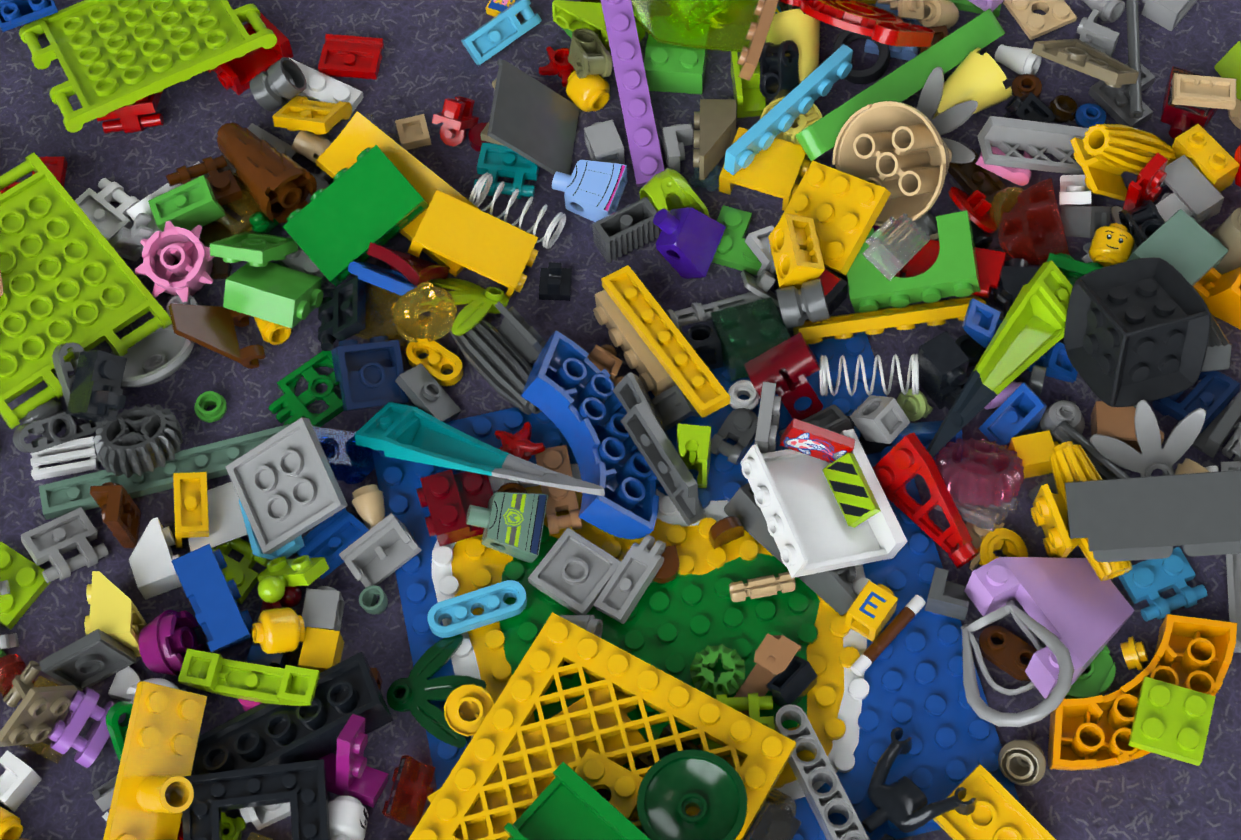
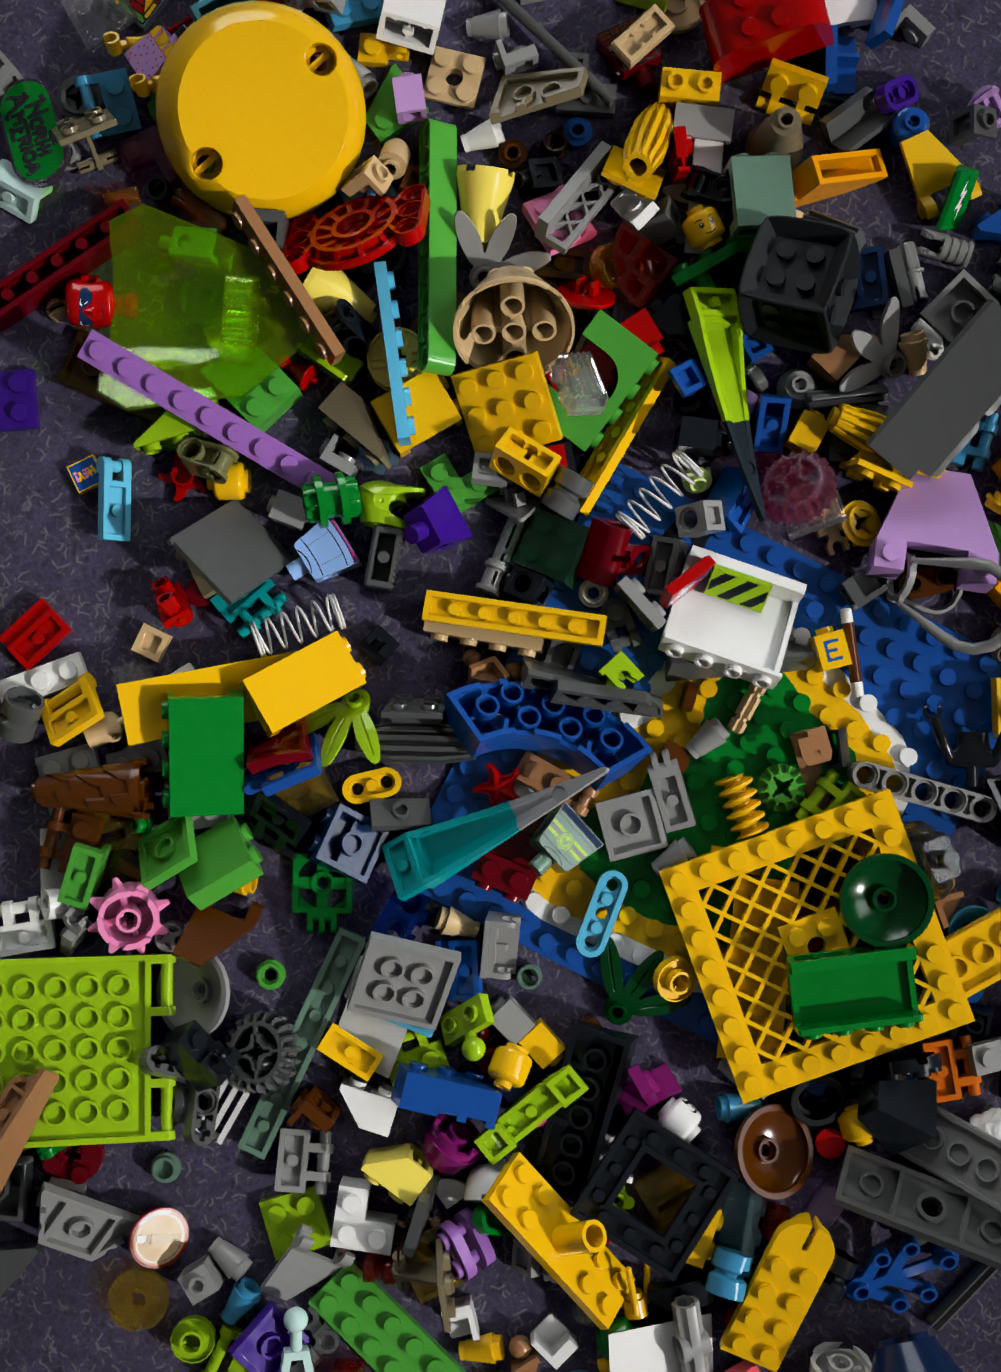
camera: 50 degrees left, 25 degrees up
(43, 618) = (356, 1225): none -> white brick
(409, 791) = (695, 1060): clear red hips -> none
(419, 300) = (337, 769): clear yellow plate -> none
(635, 149) = (331, 499): none -> green piece
(672, 638) = (742, 805): none -> yellow piece
(705, 574) = (707, 738): none -> light grey cone
(717, 79) = (303, 374): none -> red piece
(902, 465) = (753, 528): red plate -> none

